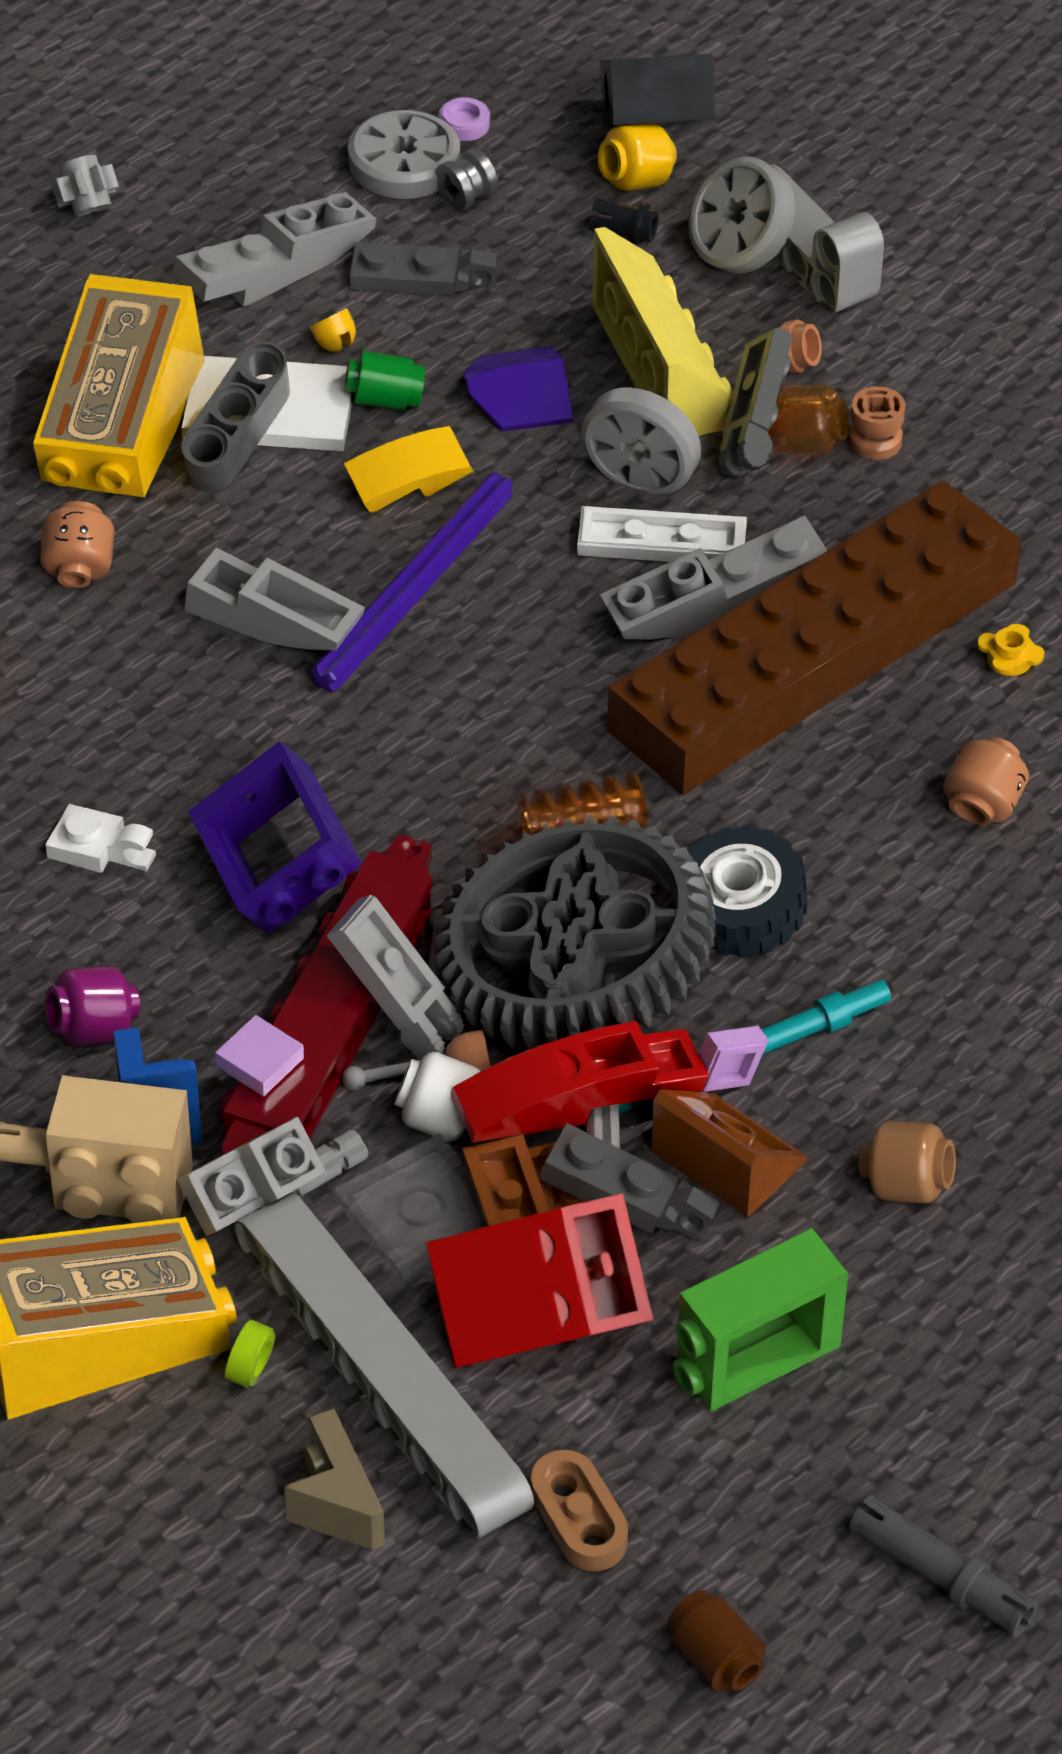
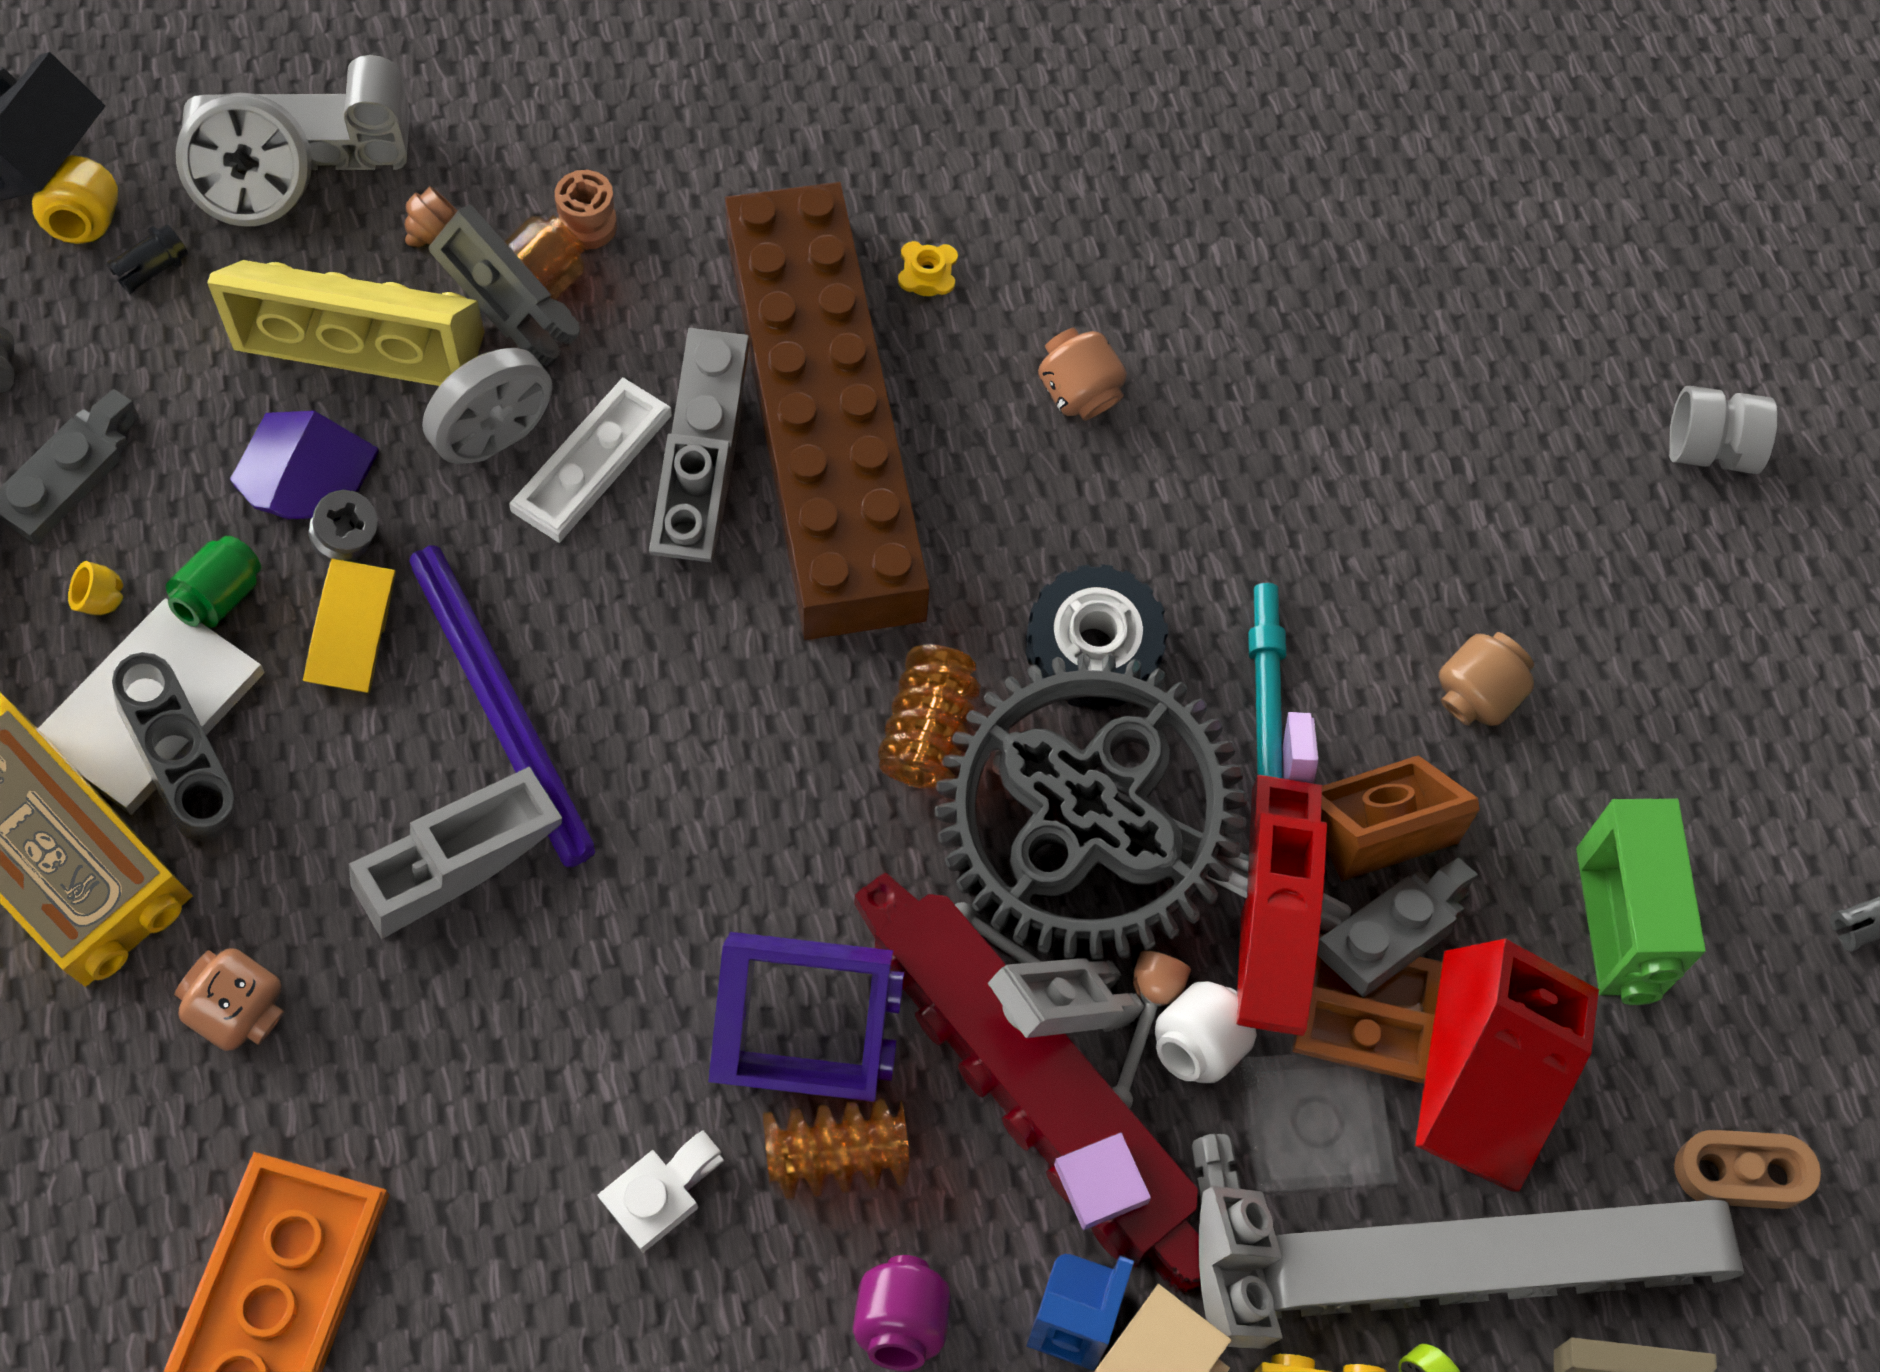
camera: 65 degrees left, 15 degrees up
(192, 914) = (836, 1148): none -> clear orange piece
(483, 436) = (338, 538): none -> flat silver wheel

